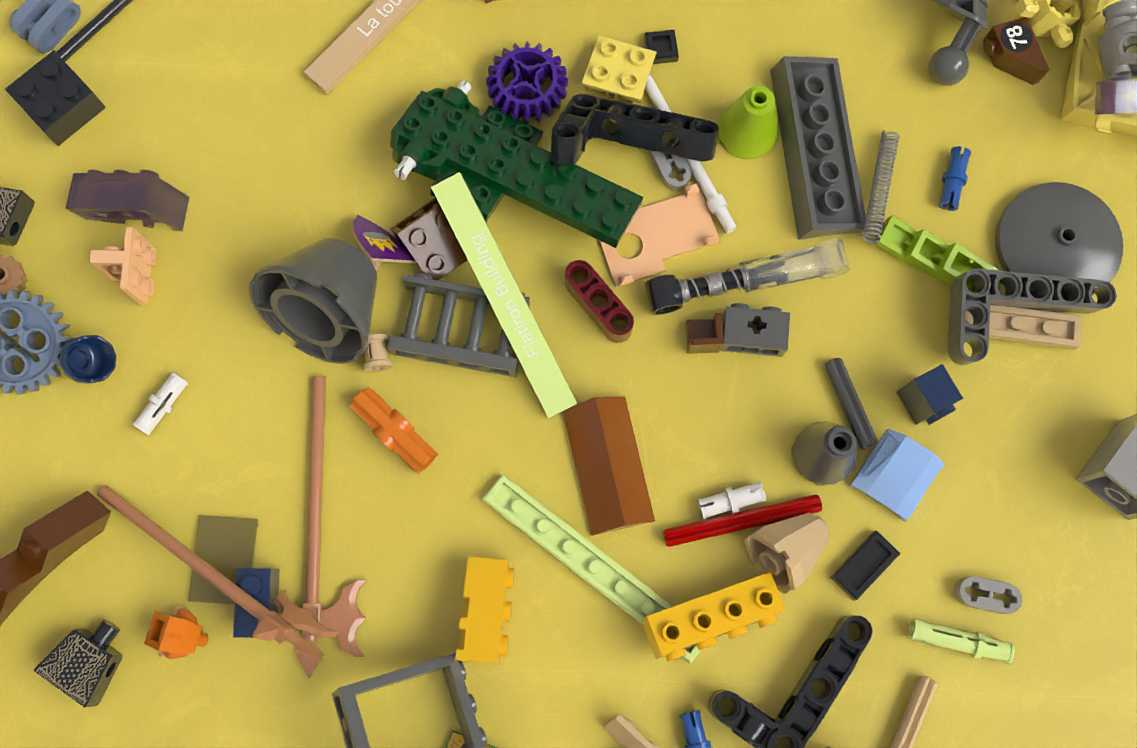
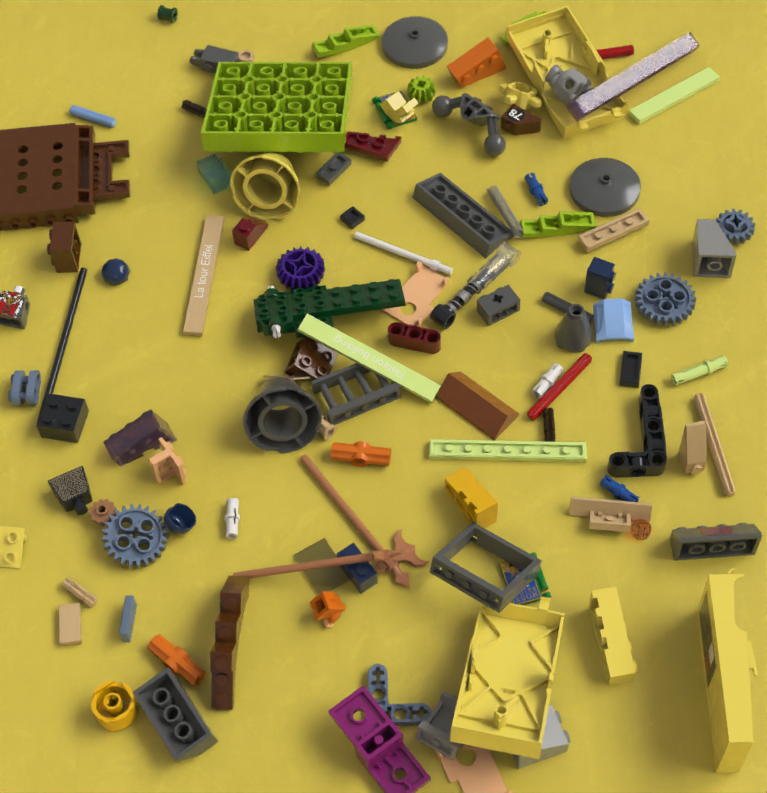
camera: 30 degrees left, 20 degrees down
(83, 664) = (290, 654): black torso -> none
(619, 69) = (341, 236): light yellow hinge -> none
(636, 126) = (371, 253): black beam -> none
(665, 171) = (397, 262): light grey beam -> none
(681, 571) = (549, 424): none -> dark brown axle
(705, 335) = (477, 321): reddish brown panel -> none
(713, 615) = (579, 429): yellow brick -> none
(750, 124) = (423, 220): lime cone -> none
(788, 549) = (589, 382): tan cone -> none
(989, 588) = (694, 343): light grey beam -> none
(1016, 295) = (587, 221): dark grey beam -> none
(1030, 489) = (666, 304): none -> sand blue gear

